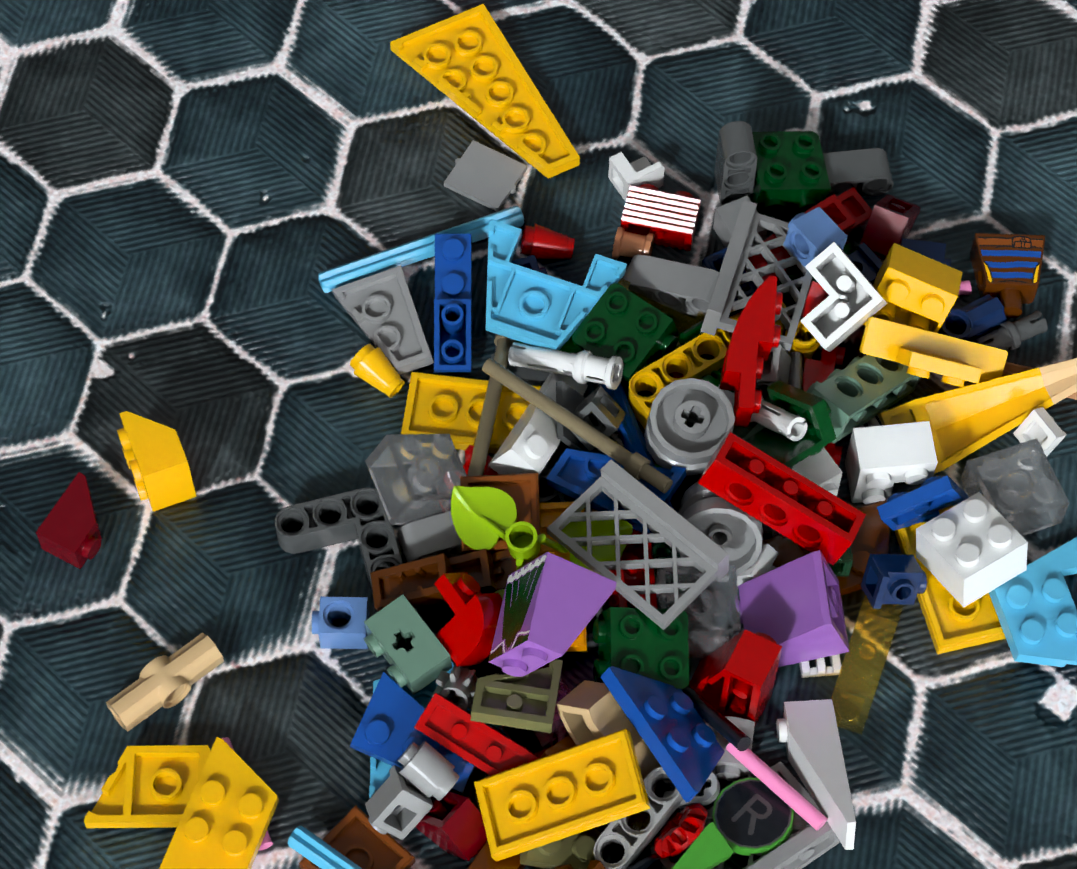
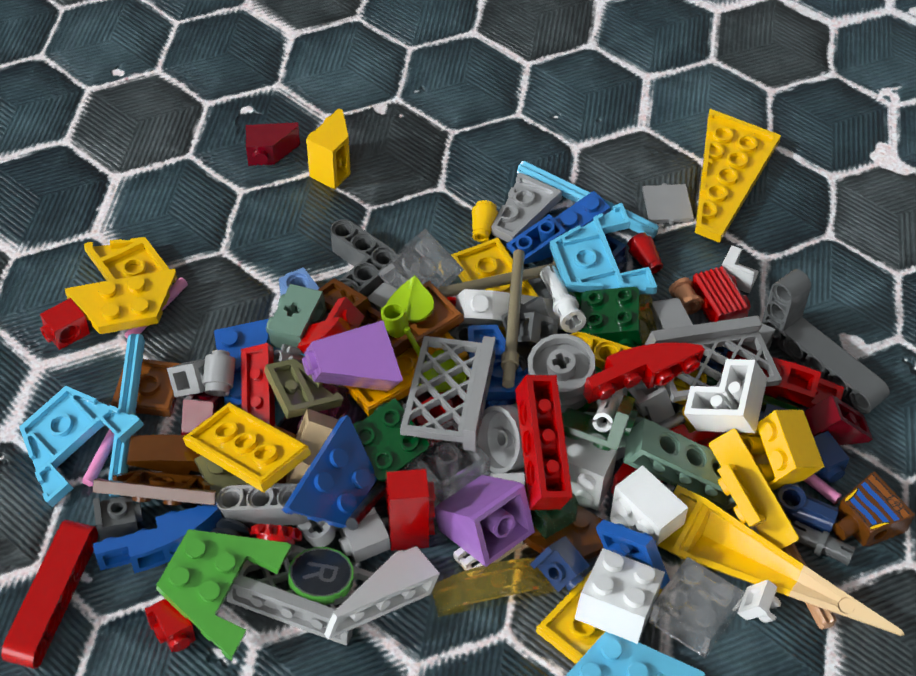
camera: 55 degrees right, 10 degrees down
(165, 681) = (200, 233): tan piece -> none
(779, 786) = (348, 567): bright pink bar -> none
(789, 172) = (814, 339): dark green bracket -> none
(812, 234) = (772, 364): medium blue brick -> none

